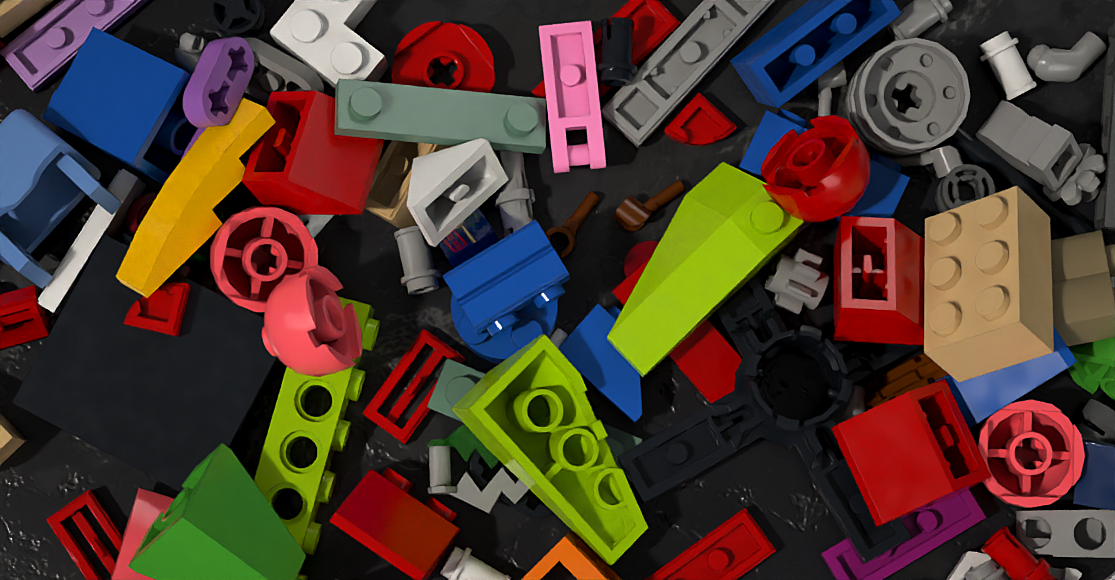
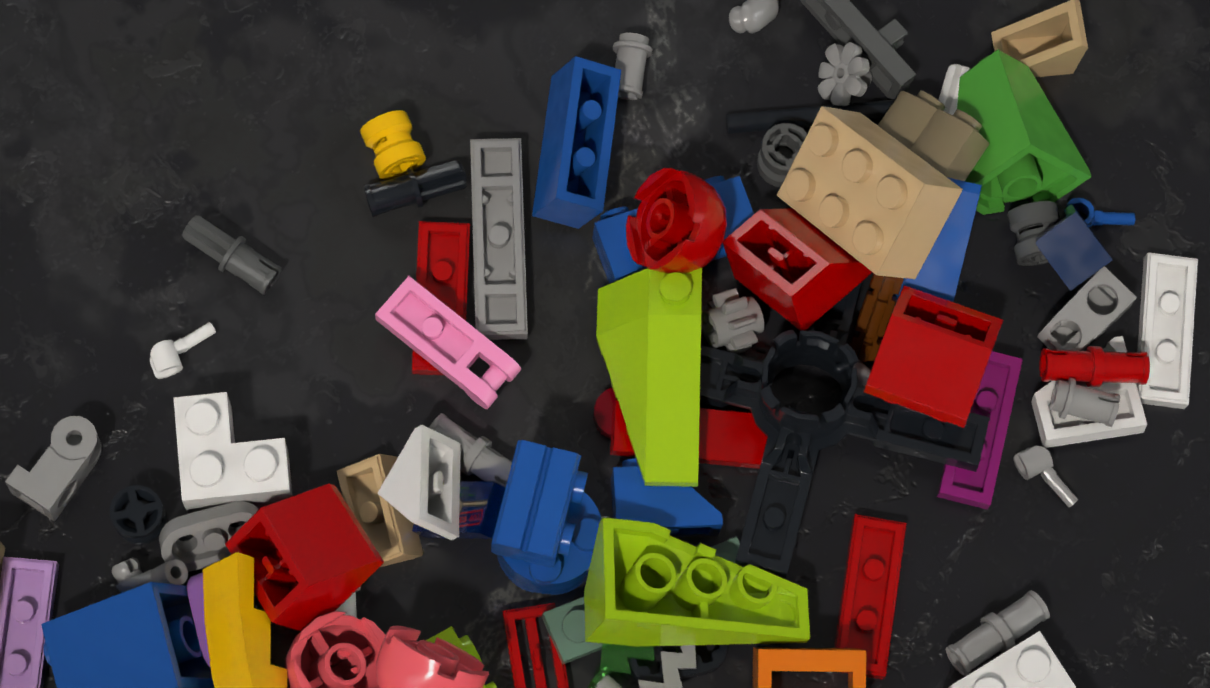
camera: 60 degrees left, 10 degrees down
(222, 74) = (181, 570): medium lavender beam -> none
(416, 261) = (449, 566): light grey pin -> none
(439, 115) = (366, 443): sand green plate -> none
(447, 44) = (316, 394): red plate -> none
(574, 222) = (532, 421): reddish brown hand -> none
(616, 53) = (448, 282): black pin -> none
(634, 214) = (571, 385): reddish brown hand -> none
(700, 124) = (553, 281): red tile -> none
(830, 79) = (617, 161): light grey hand -> none
(934, 86) = (692, 100): light grey wheel -> none
(943, 159) = (746, 146): light grey hand -> none
(1007, 65) = (724, 43): white pin -> none
(1030, 453) = (1011, 281): coral cylinder -> none
(1031, 144) = (795, 79): light grey leg -> none

